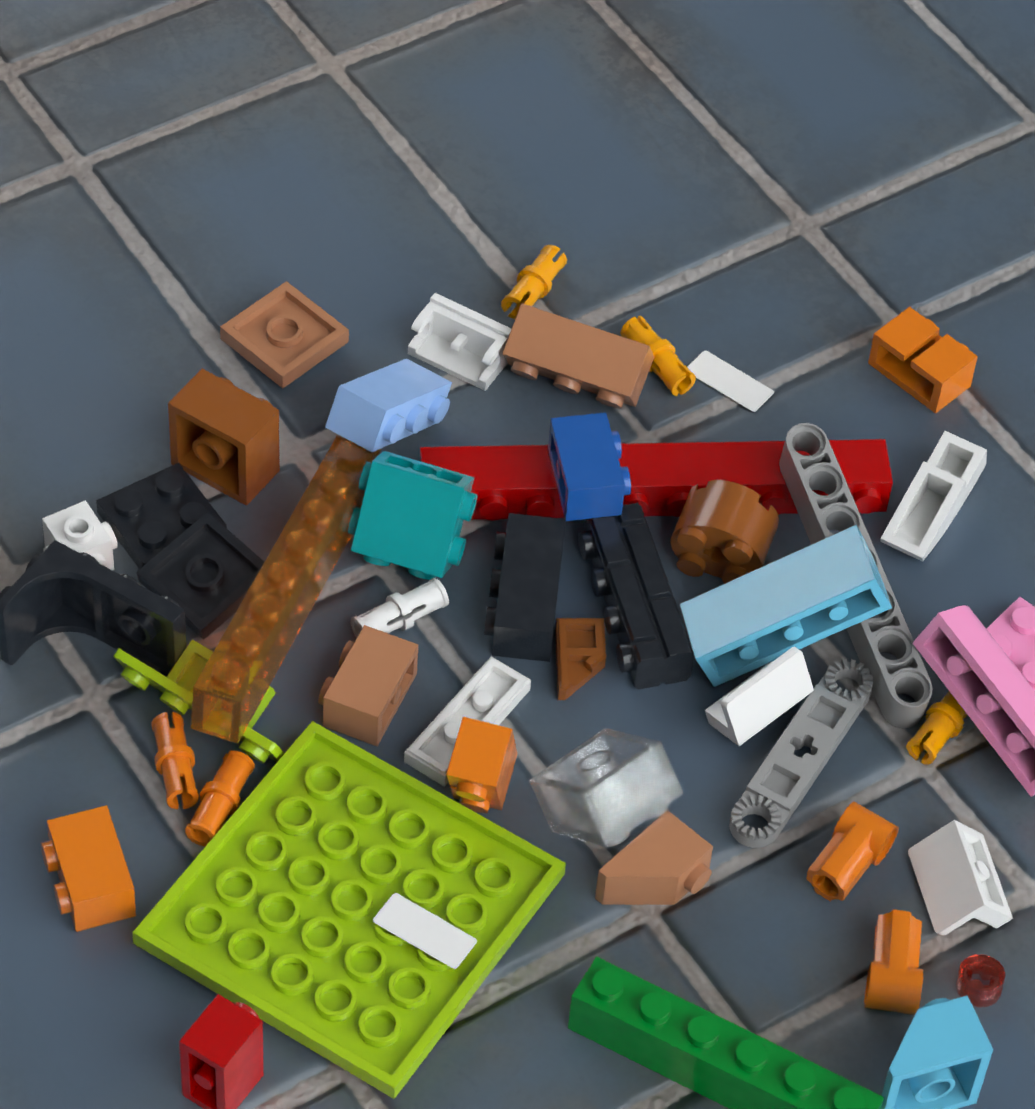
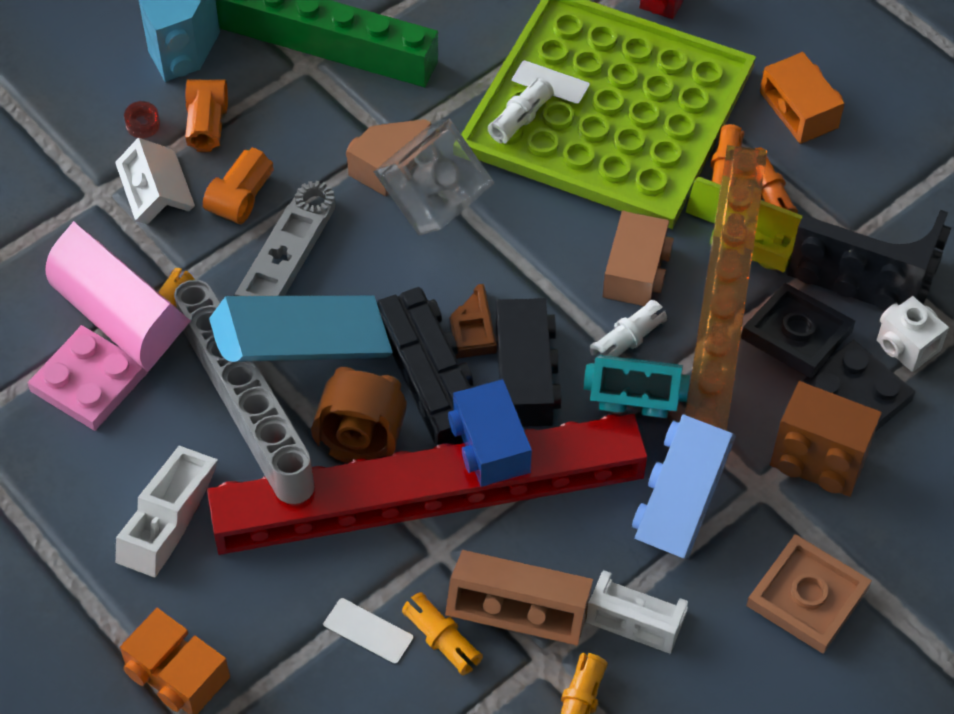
camera: 175 degrees right, 5 degrees up
(475, 876) = (520, 110): none -> white pin
(482, 765) = (532, 179): orange piece -> none
(485, 697) = (553, 255): white tile -> none
(761, 697) = (323, 276): white panel -> none

